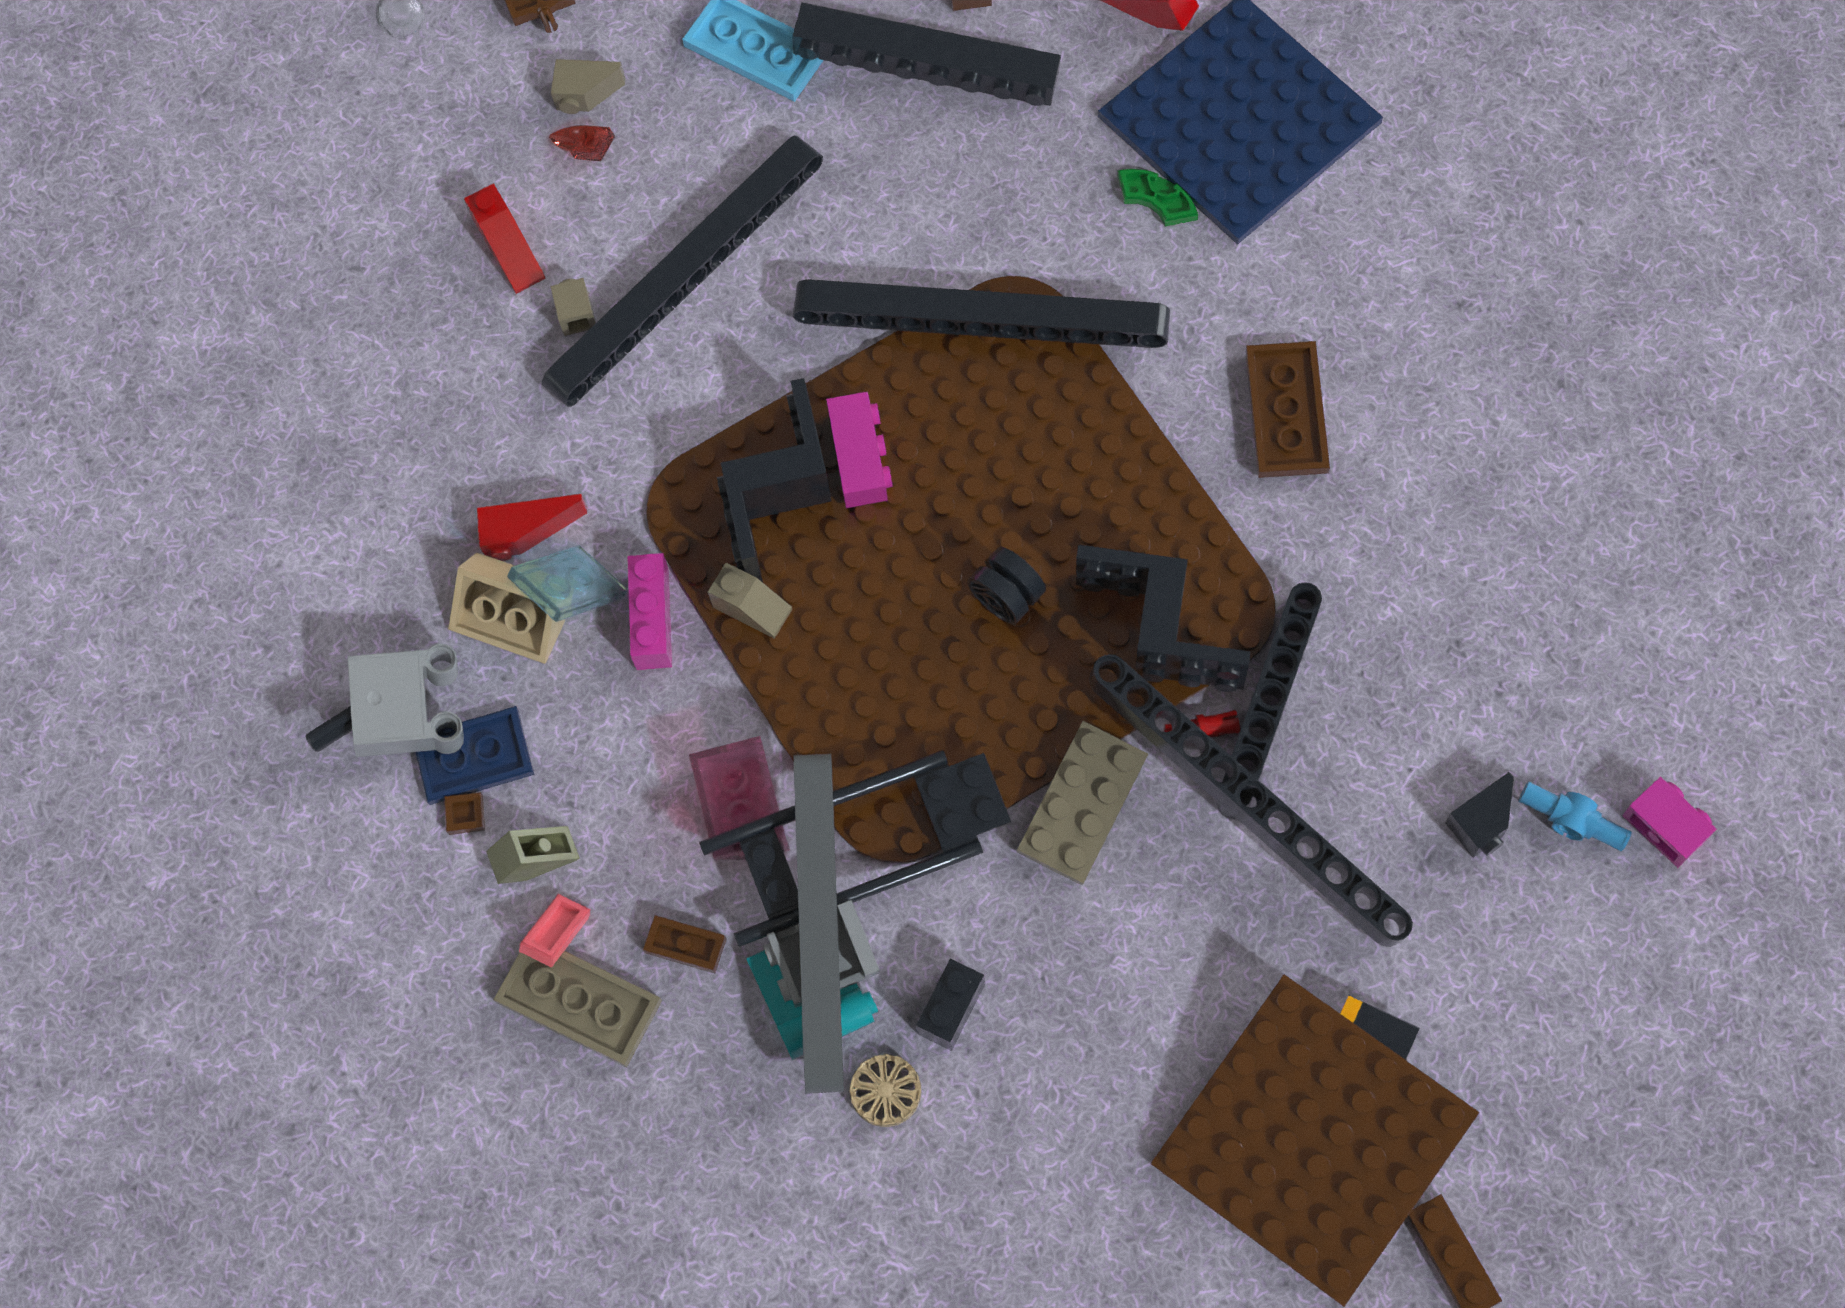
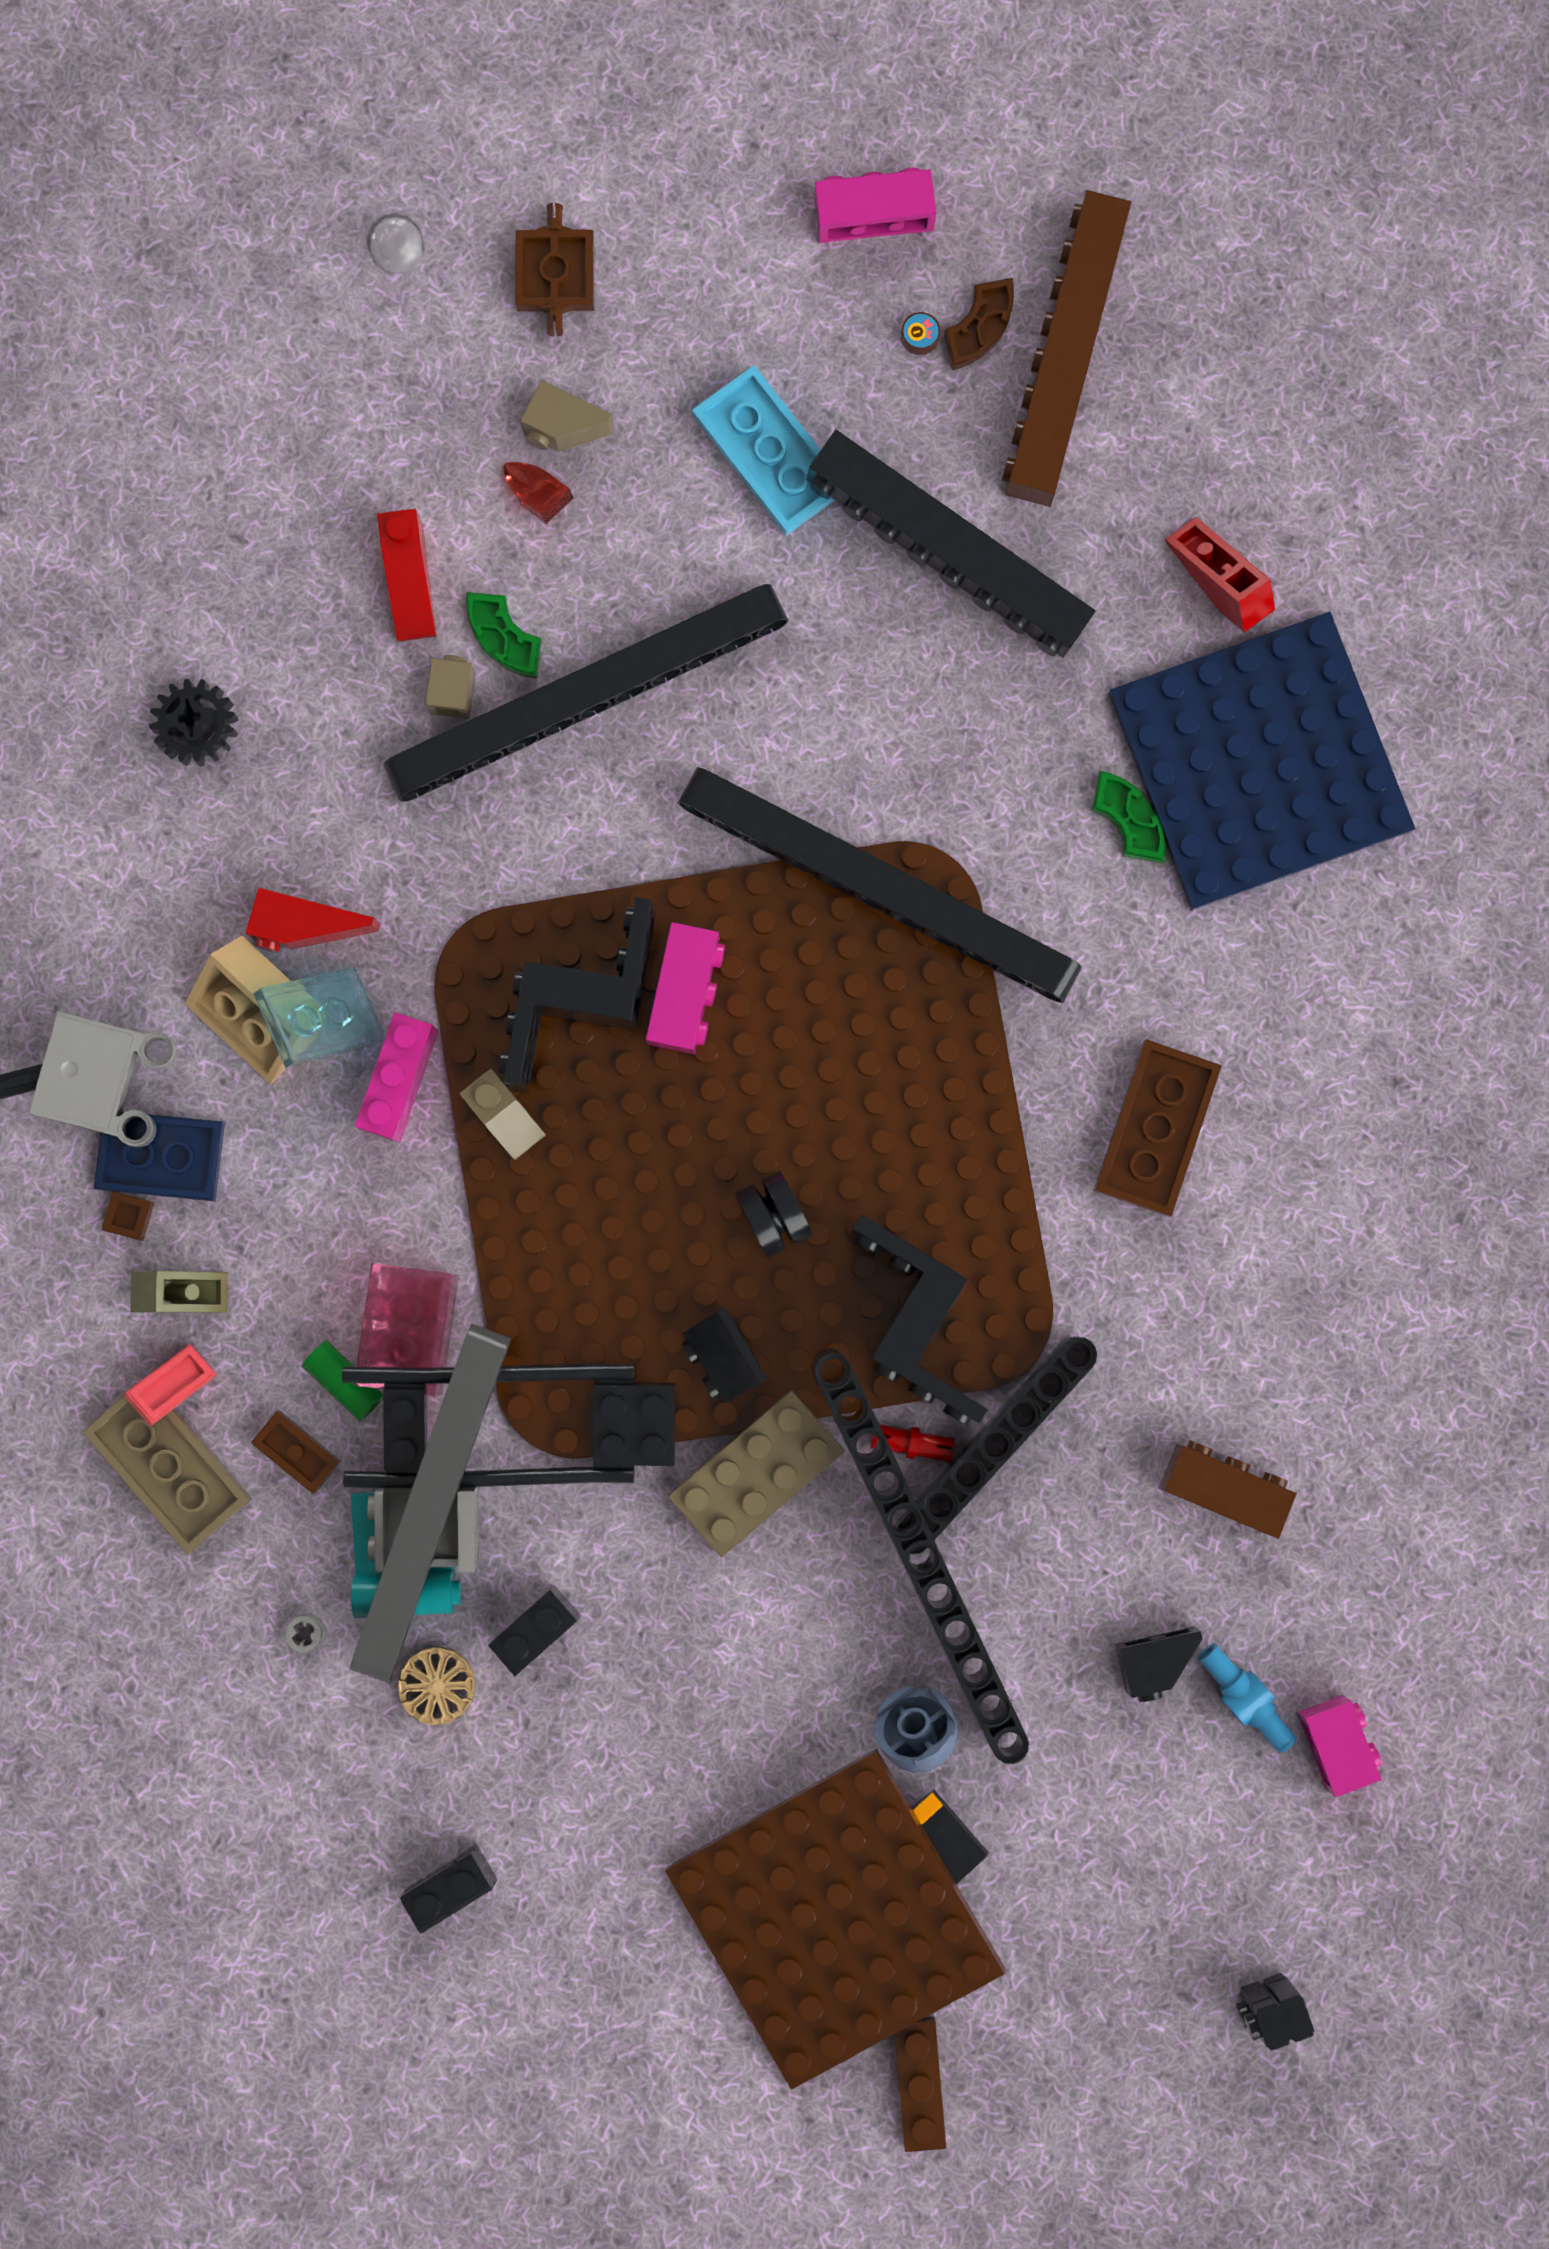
camera: 15 degrees right, 15 degrees up
(361, 424) = (187, 704): none -> black gear
(597, 257) = (500, 636): none -> green tile
(701, 870) = (326, 1368): none -> green piece
(763, 1089) = (292, 1630): none -> light grey bush
(968, 1254) = (448, 1889): none -> black brick
(1015, 710) = (723, 1355): none -> black slope
(1312, 948) = (916, 1729): none -> sand blue cylinder
(1477, 658) = (1228, 1488): none -> reddish brown brick
(1724, 1055) = (1274, 2012): none -> black brick

